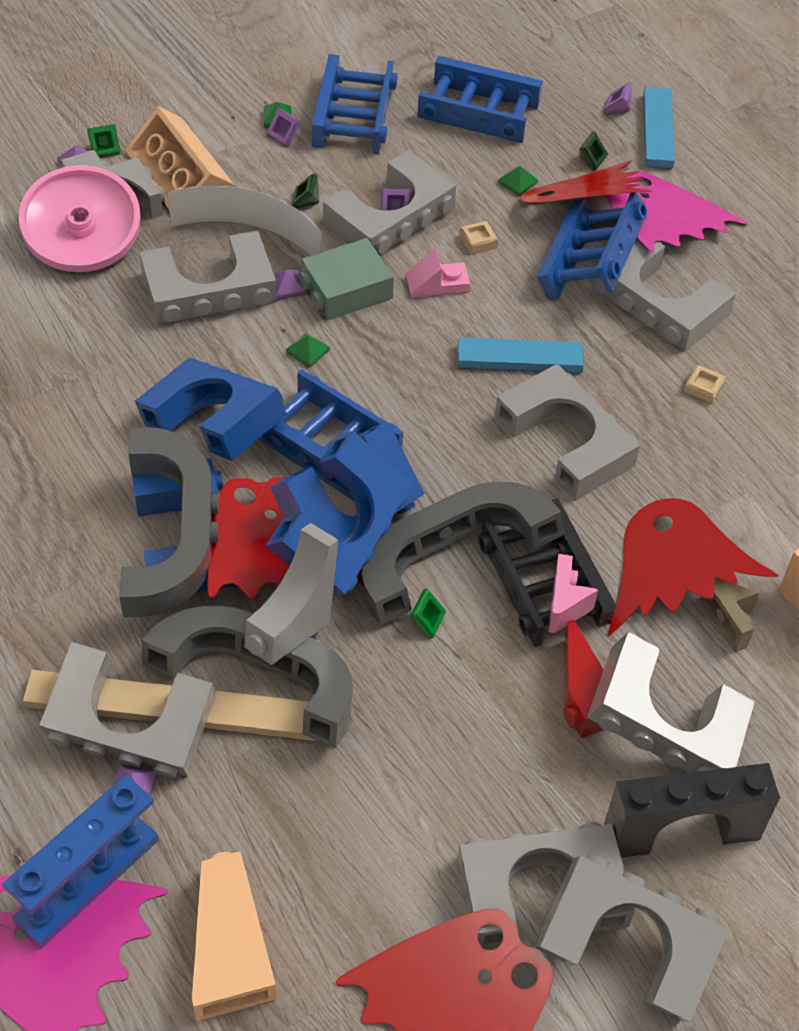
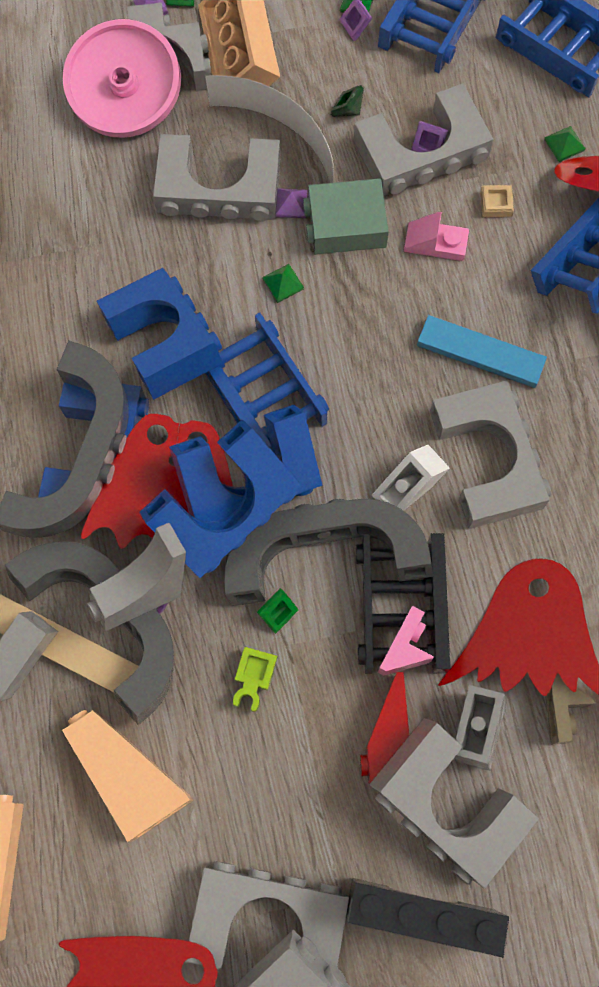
camera: 25 degrees right, 20 degrees up
(340, 799) = (125, 778): none -> light nougat slope
(431, 674) = (254, 672): none -> lime plate
(508, 461) = (412, 478): none -> white slope
(664, 631) = (480, 727): none -> light grey brick

